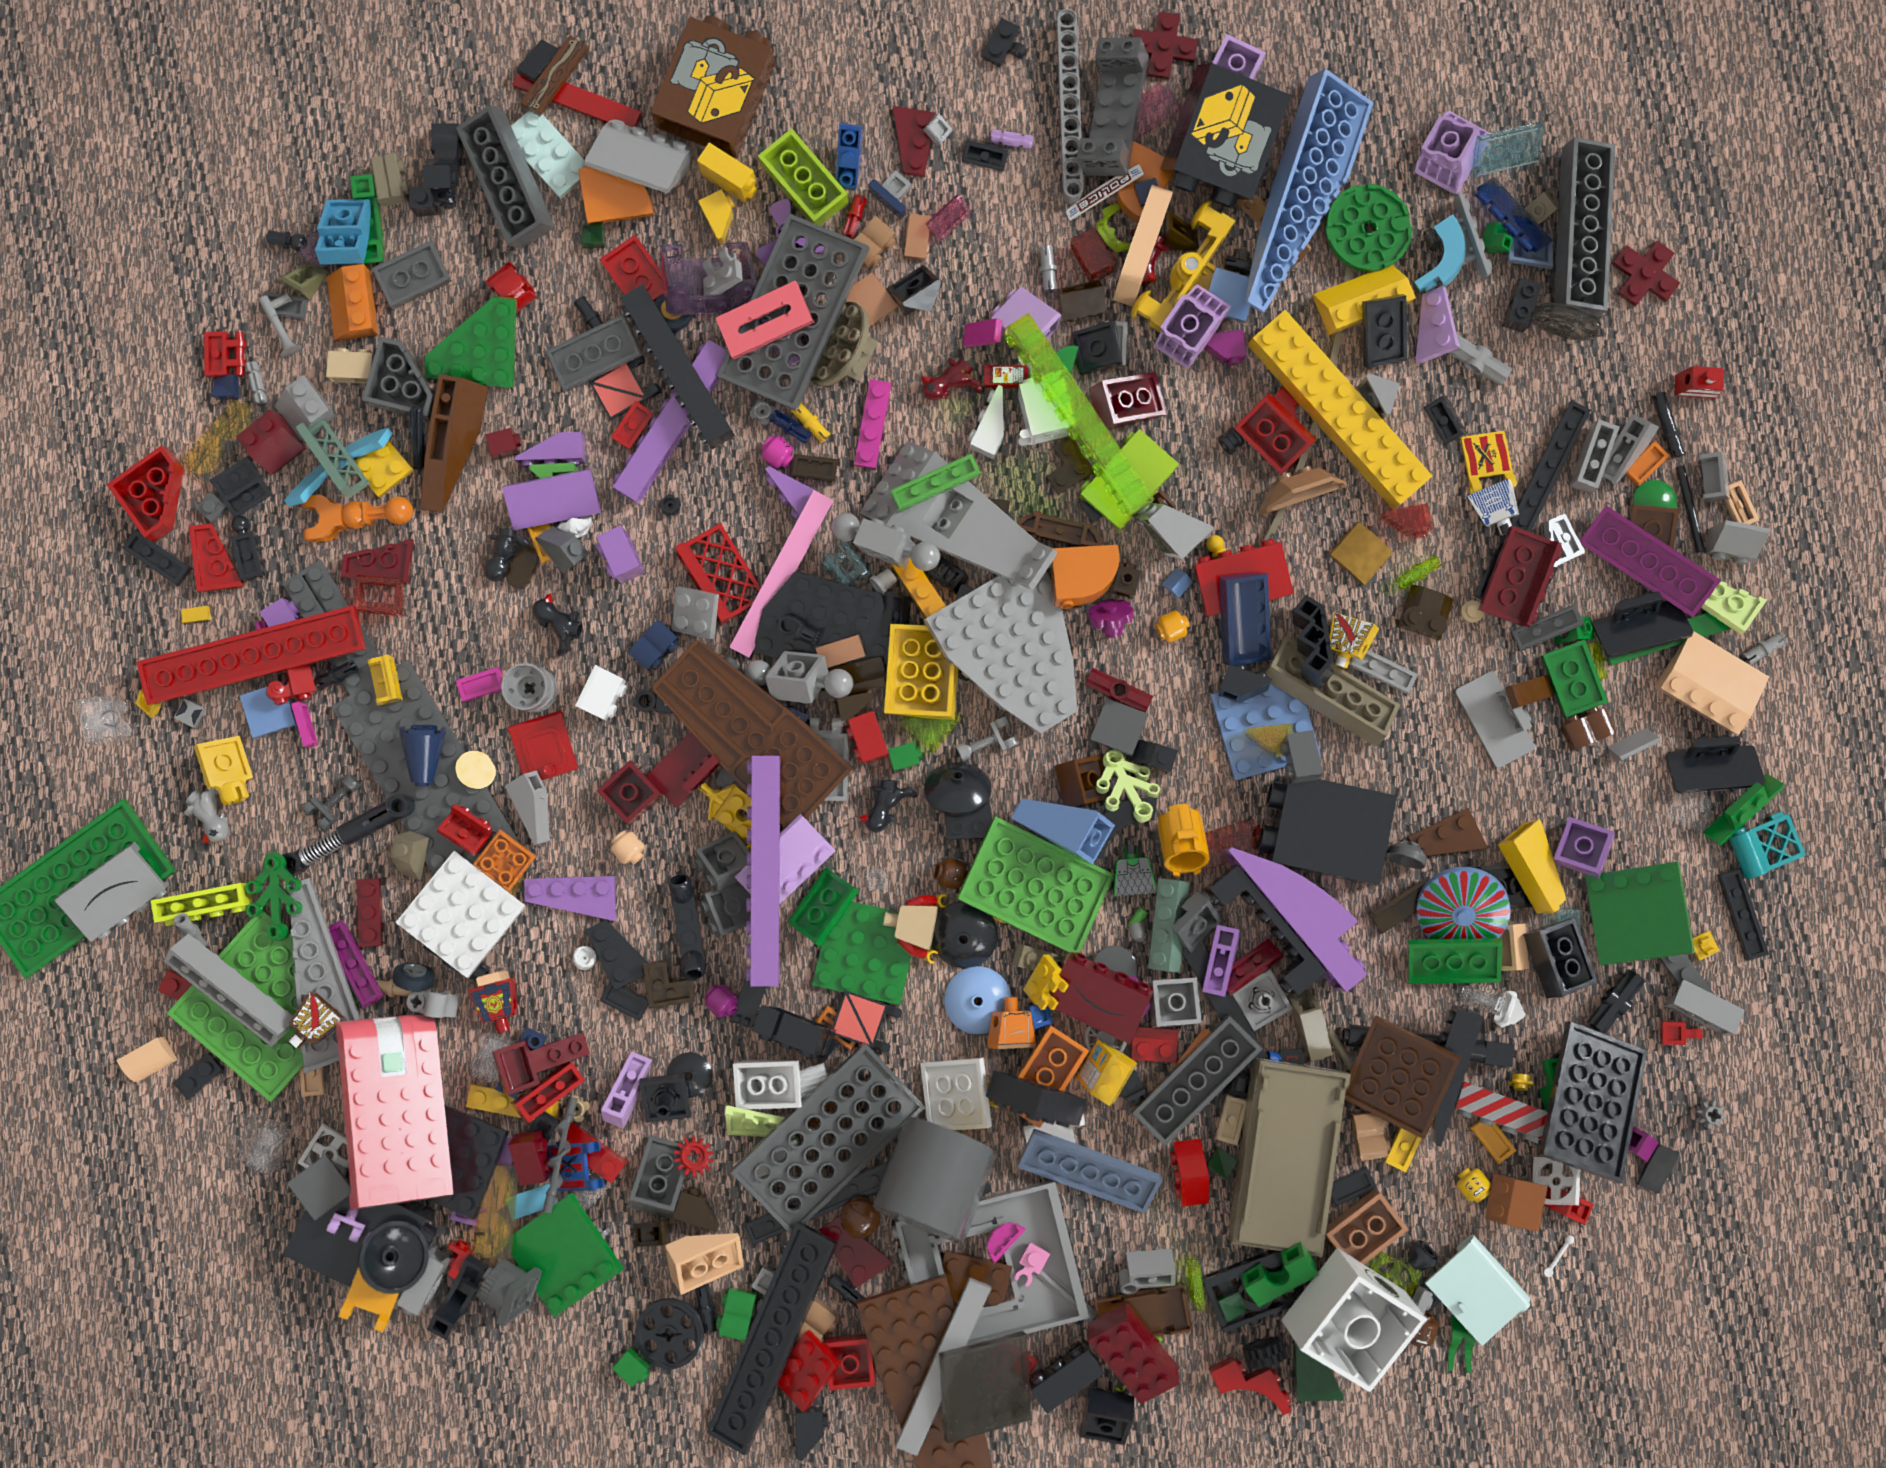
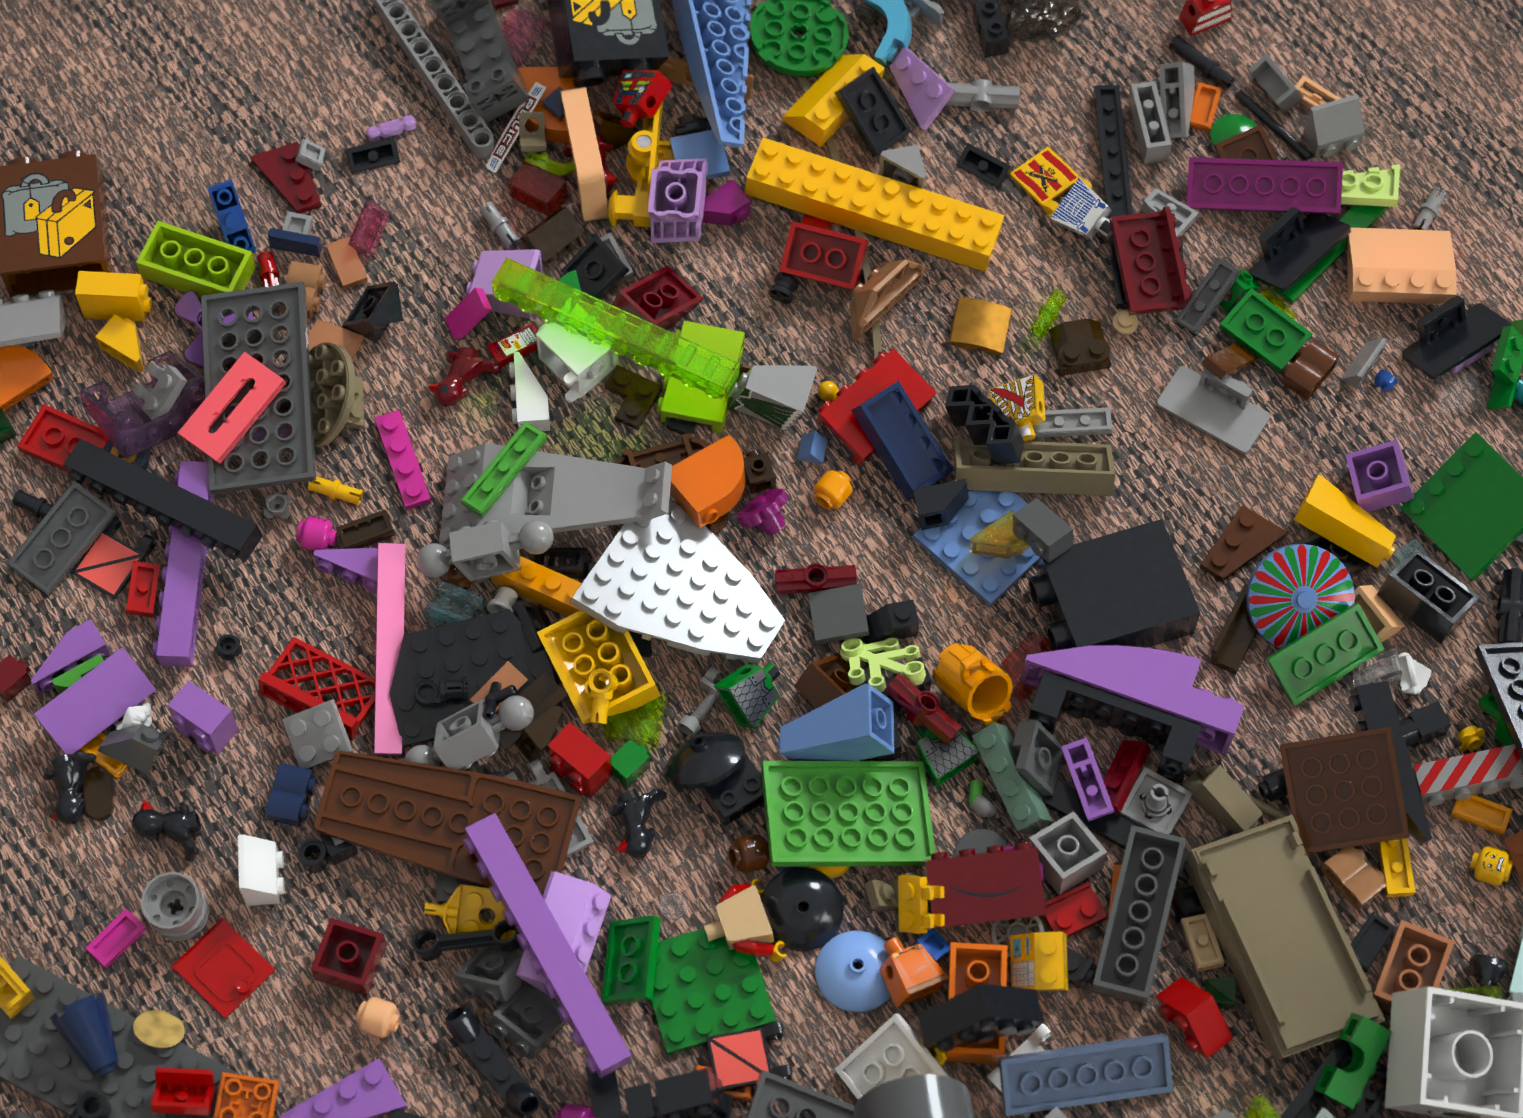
camera: 30 degrees left, 20 degrees down
(531, 804) = (240, 1025): light grey slope -> none
(683, 769) = (397, 900): dark red bracket -> none
(713, 825) = (464, 940): none -> black piece
(790, 426) = (316, 504): clear blue axle -> none
(831, 662) = (495, 697): none -> black piece
(906, 704) = (601, 696): none -> yellow pin
(1002, 43) = (330, 49): black plate -> none
(1019, 754) = (749, 693): none -> torso
(1110, 212) = (532, 141): none -> dark tan bracket
(1130, 832) = (922, 708): none -> dark red piece
(1210, 222) = (640, 95): none -> red torso
(1407, 854) = (1211, 579): dark grey piece -> none
(1410, 520) = (1008, 270): clear red slope -> none
(1638, 769) = (1386, 380): none -> blue hinge

